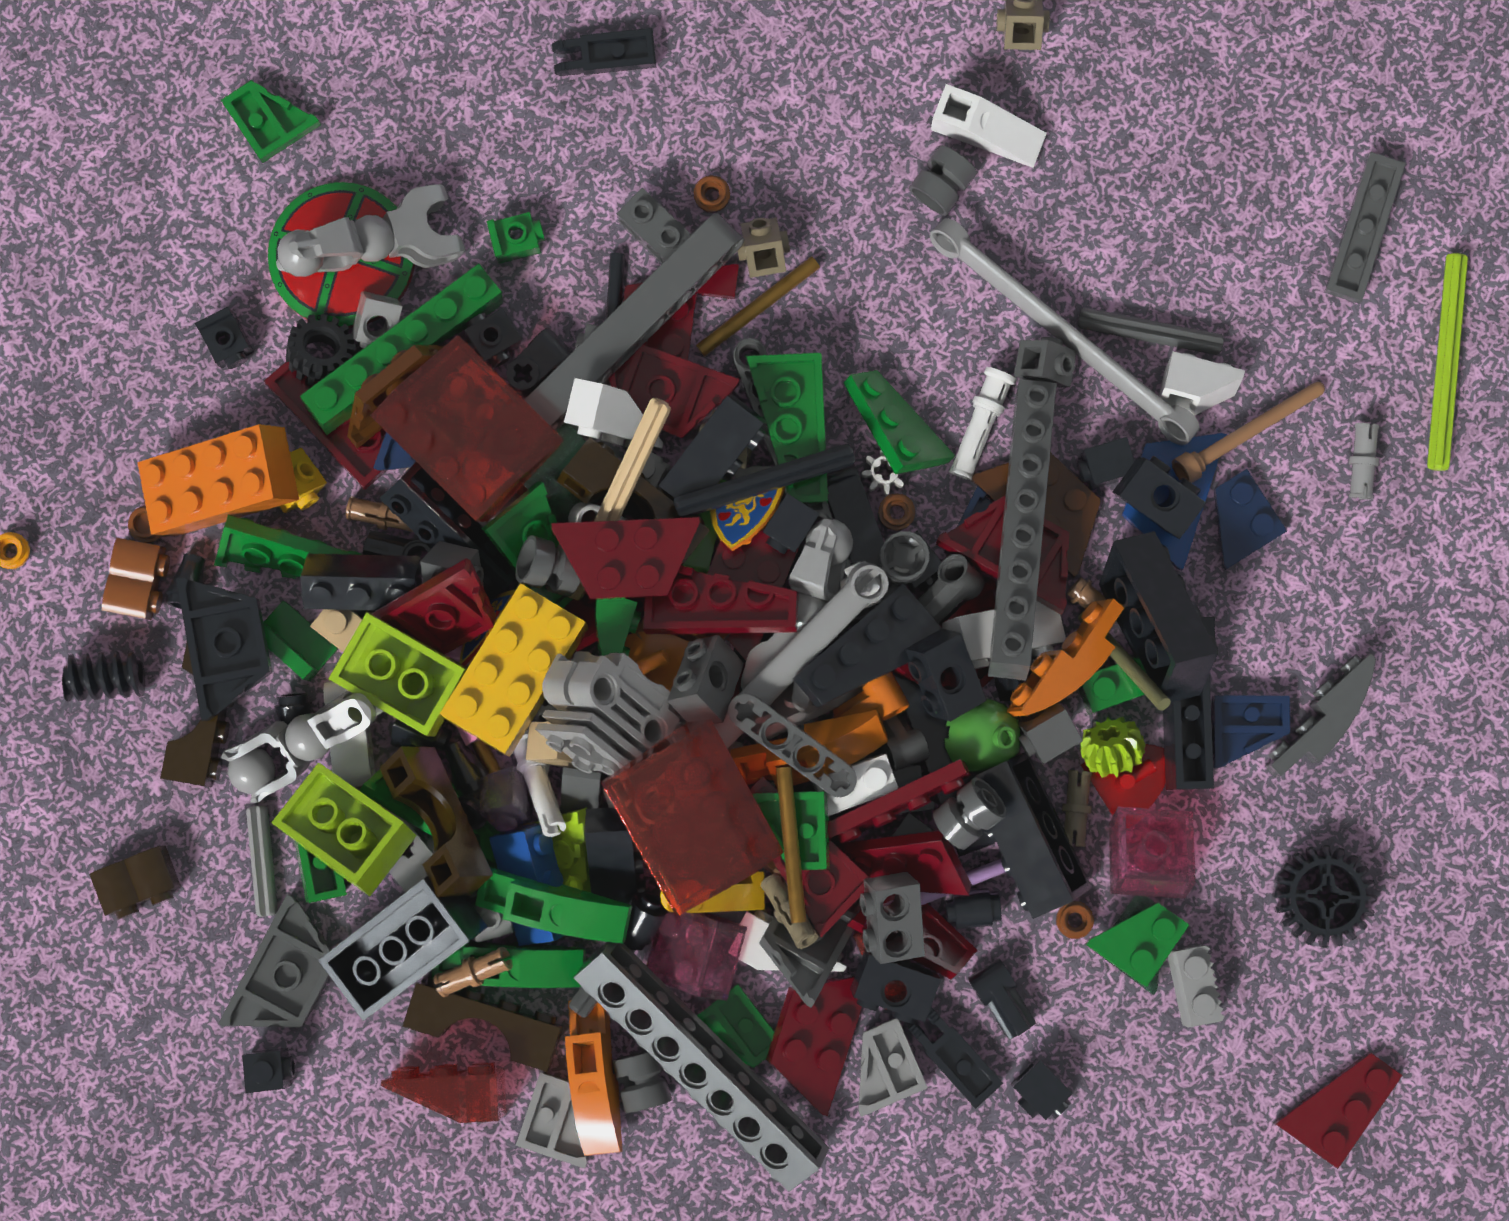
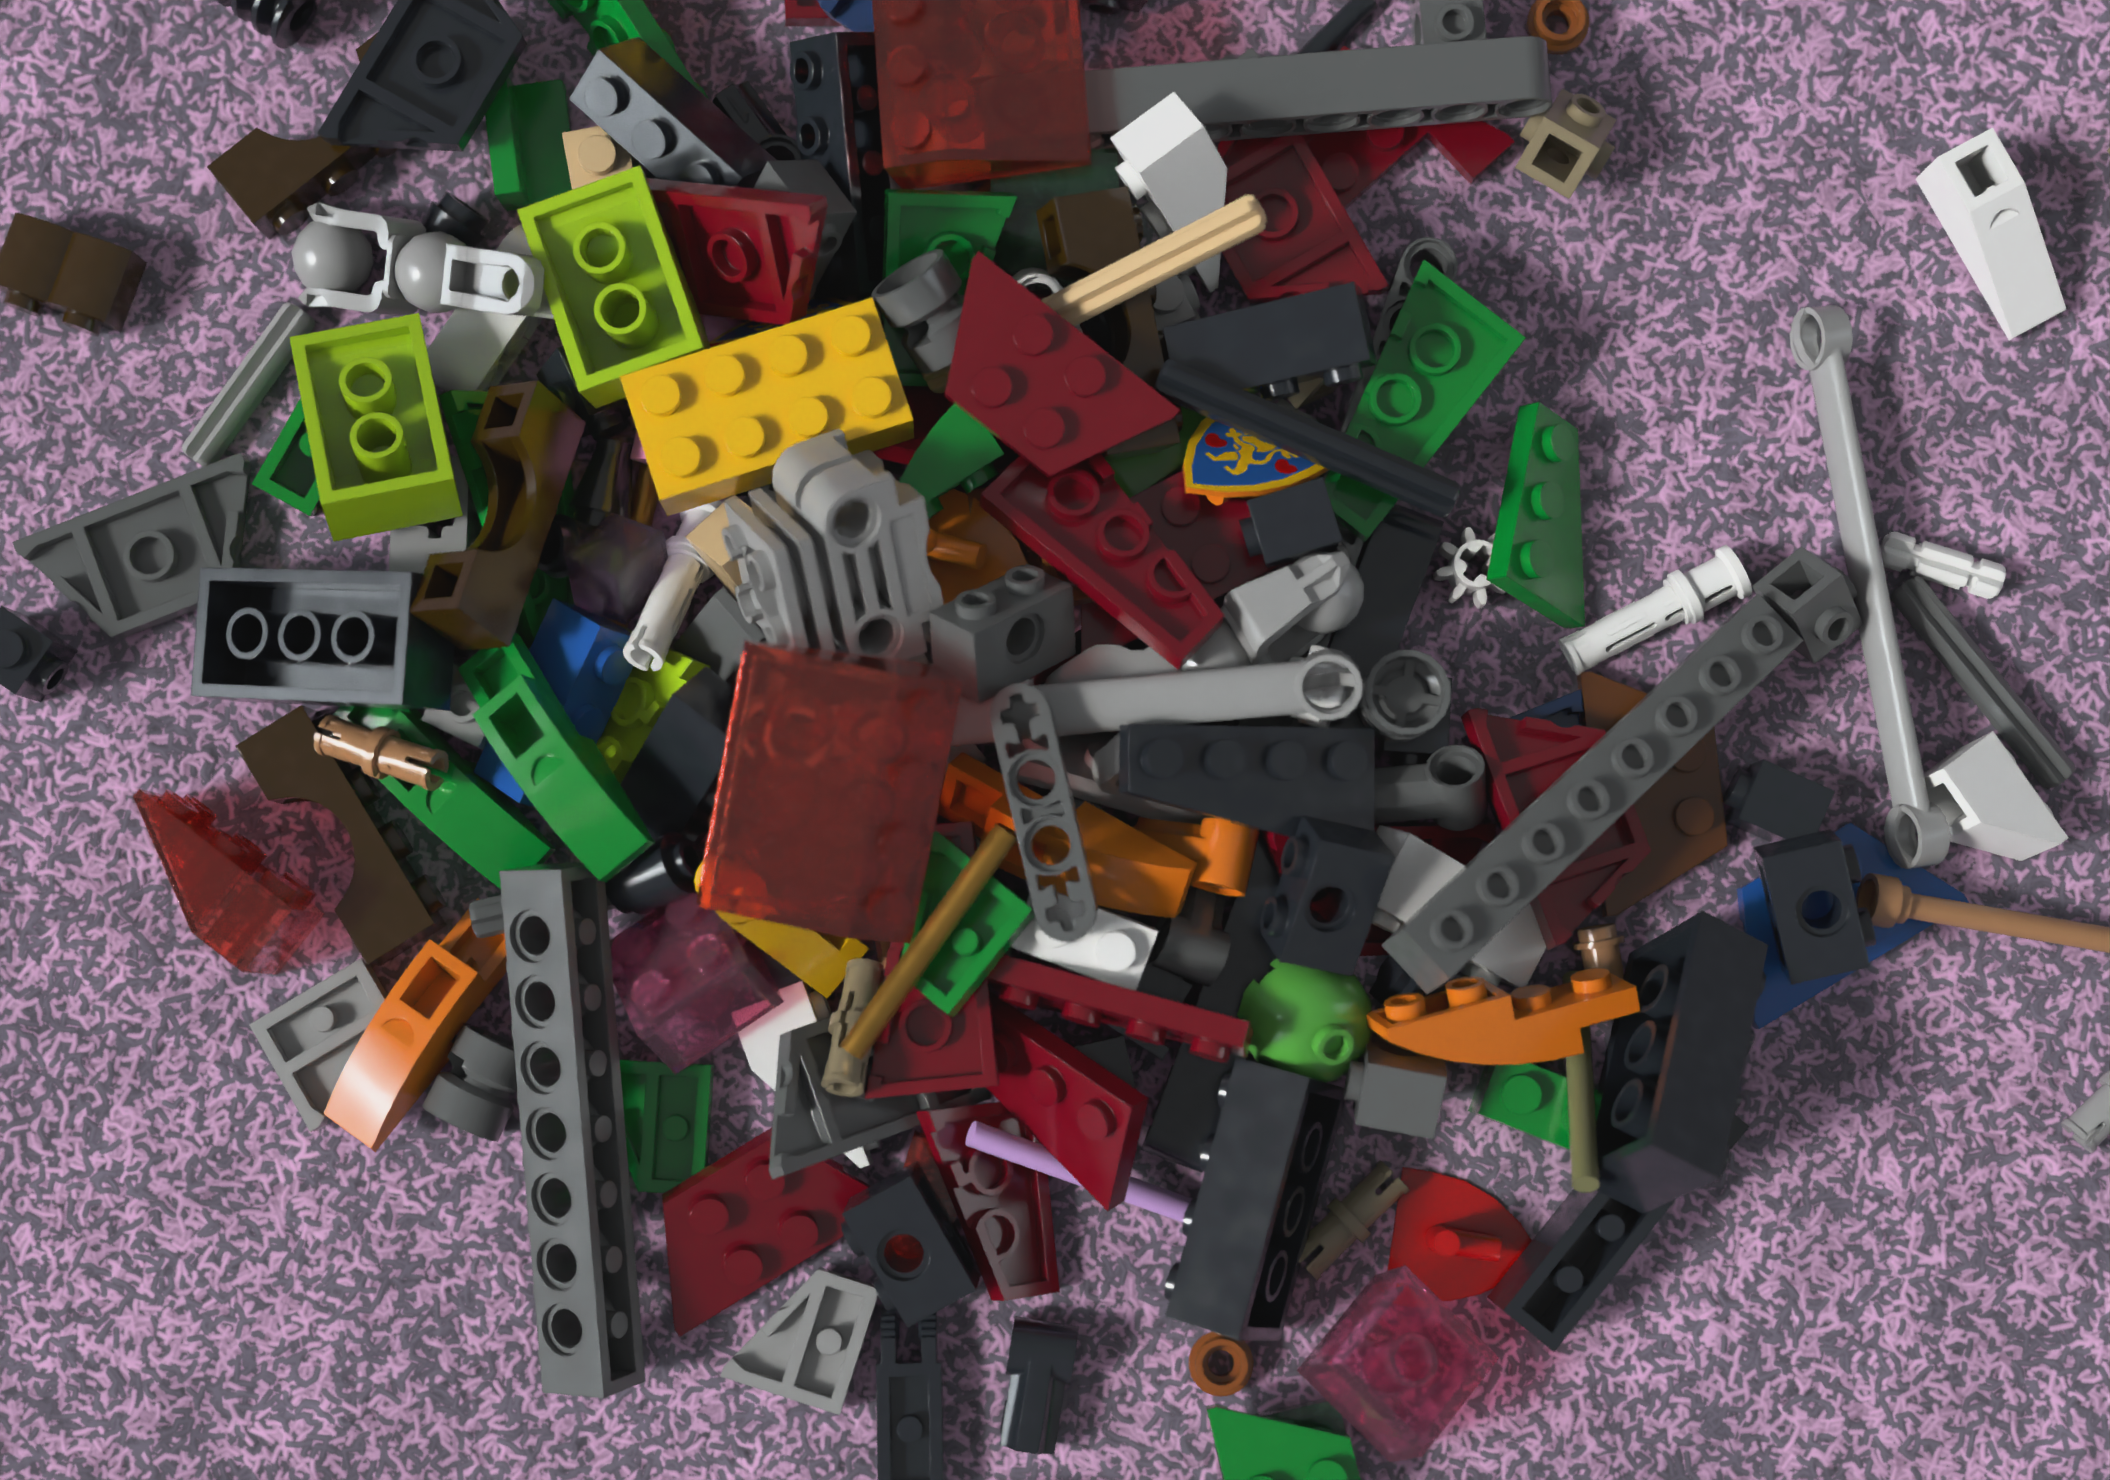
camera: 35 degrees right, 0 degrees up
(373, 513) = (768, 62): medium nougat pin -> none
(539, 358) = (1144, 39): black piece -> none
(757, 306) = (1493, 217): pearl gold bar -> none
(896, 500) = (1450, 614): dark orange plate -> none
(901, 915) = (993, 1159): dark grey brick -> none
(945, 177) = (1888, 253): dark grey wheel -> none
(966, 816) = (1200, 1105): dark grey wheel -> none
(974, 911) = (1100, 1237): black brick -> none
(1088, 294) = (1942, 565): none -> white axle
(1112, 746) = (1465, 1180): lime gear -> none
(1244, 518) = (1897, 1032): dark blue wing -> none
(1246, 724) = (1669, 1305): dark blue wing -> none
(1336, 707) = (1805, 1389): dark grey slope -> none

